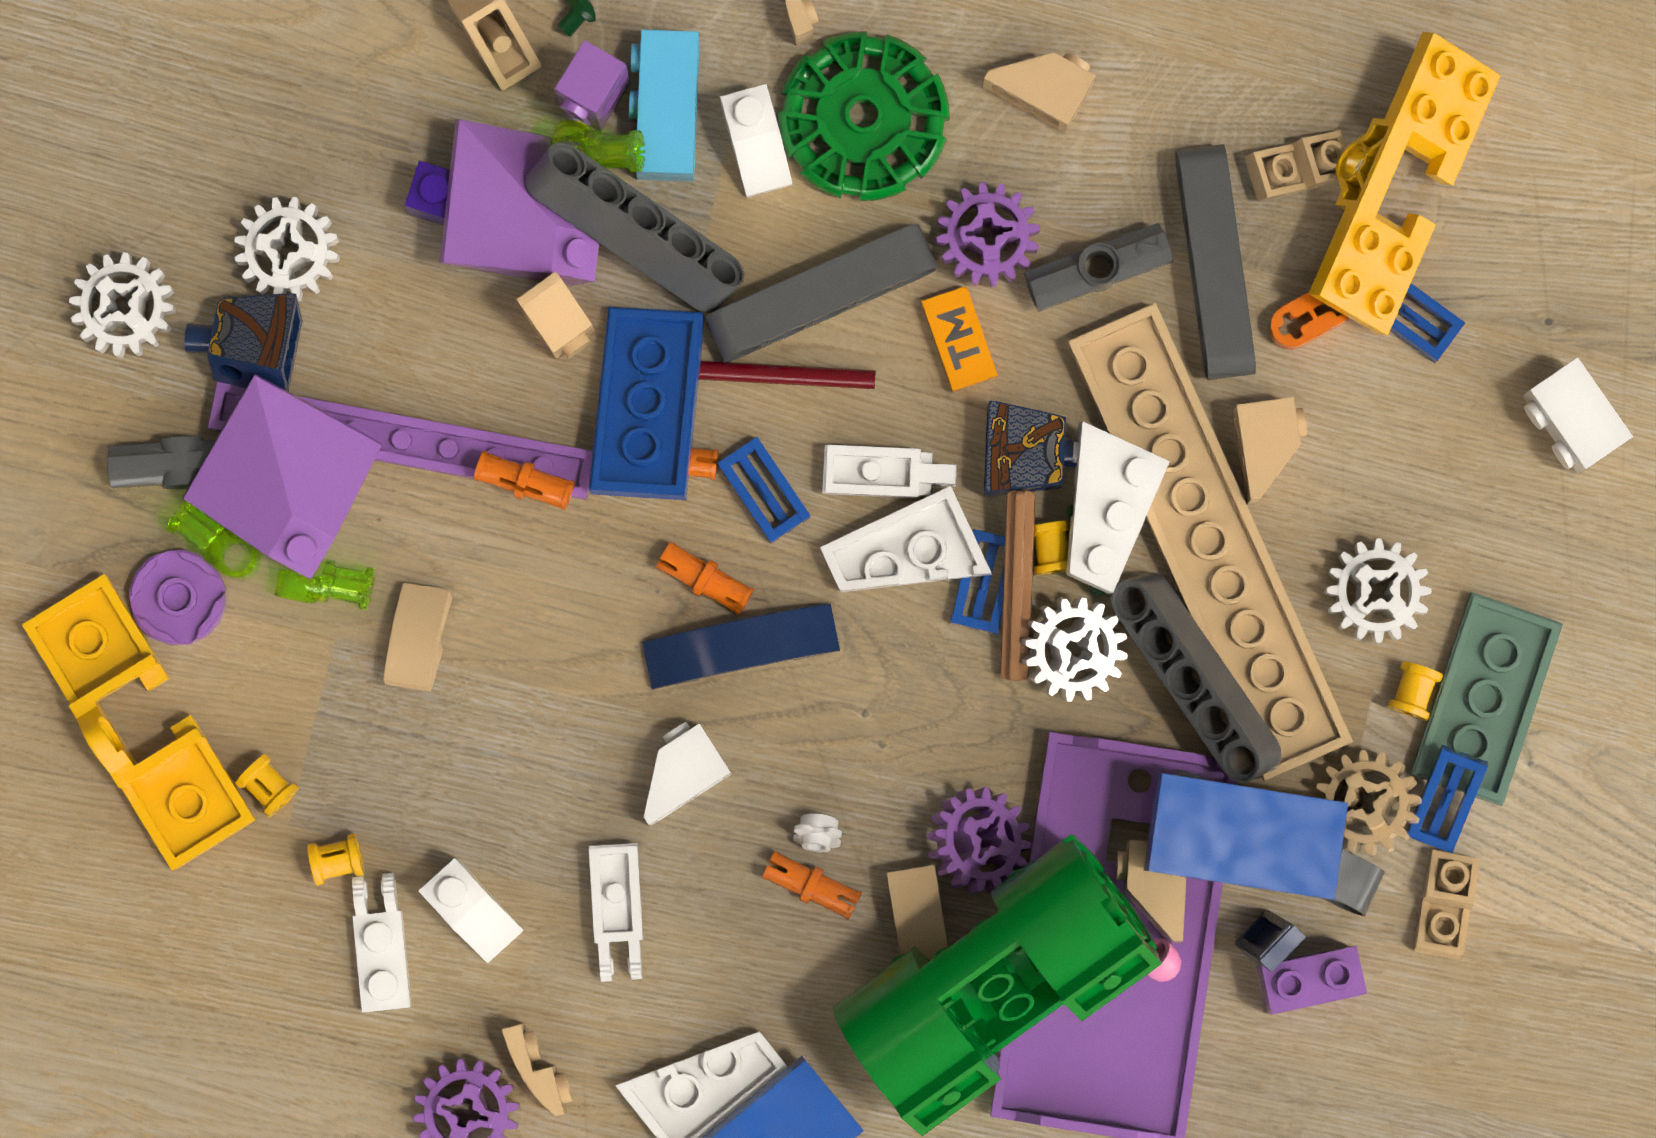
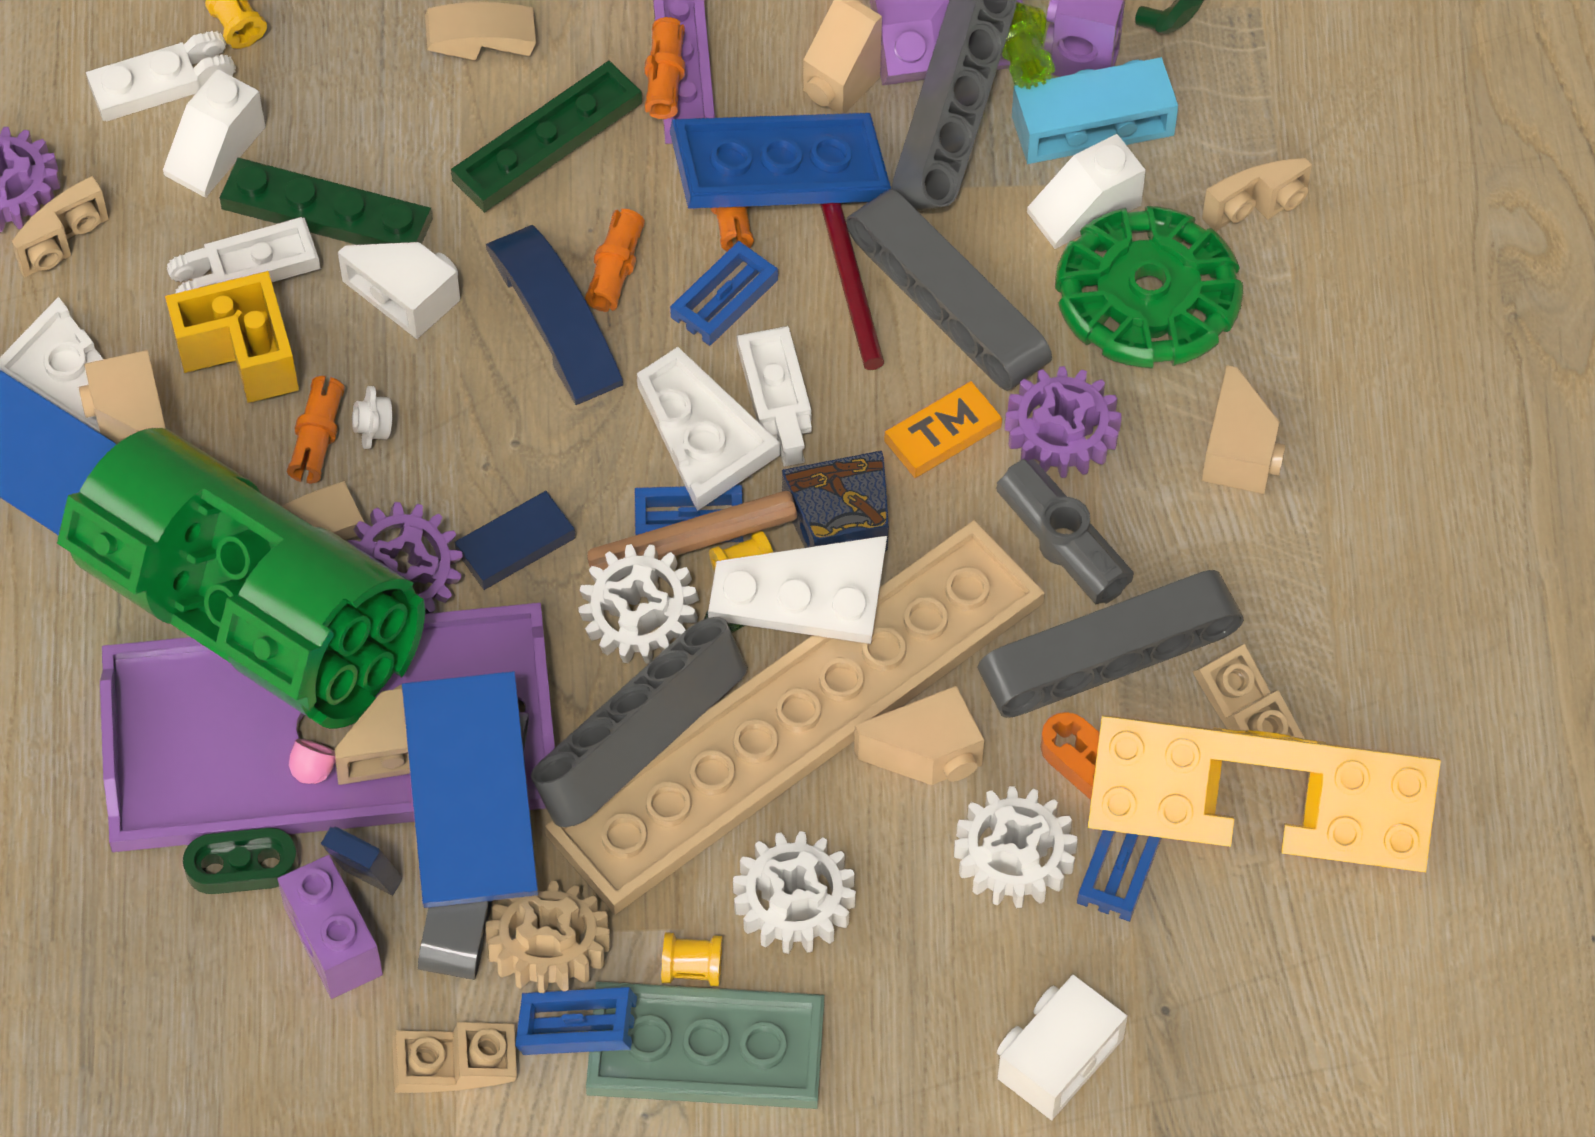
camera: 75 degrees right, 25 degrees down
(553, 605) = (546, 136): none -> dark green plate
(572, 824) = (327, 206): none -> dark green plate
(696, 923) = (238, 324): none -> yellow brick
(766, 1045) = (122, 395): none -> tan slope
(970, 737) = (515, 540): none -> dark blue tile
(1223, 1040) = (241, 859): none -> dark green plate
(1405, 395) = (1012, 853): none -> white gear

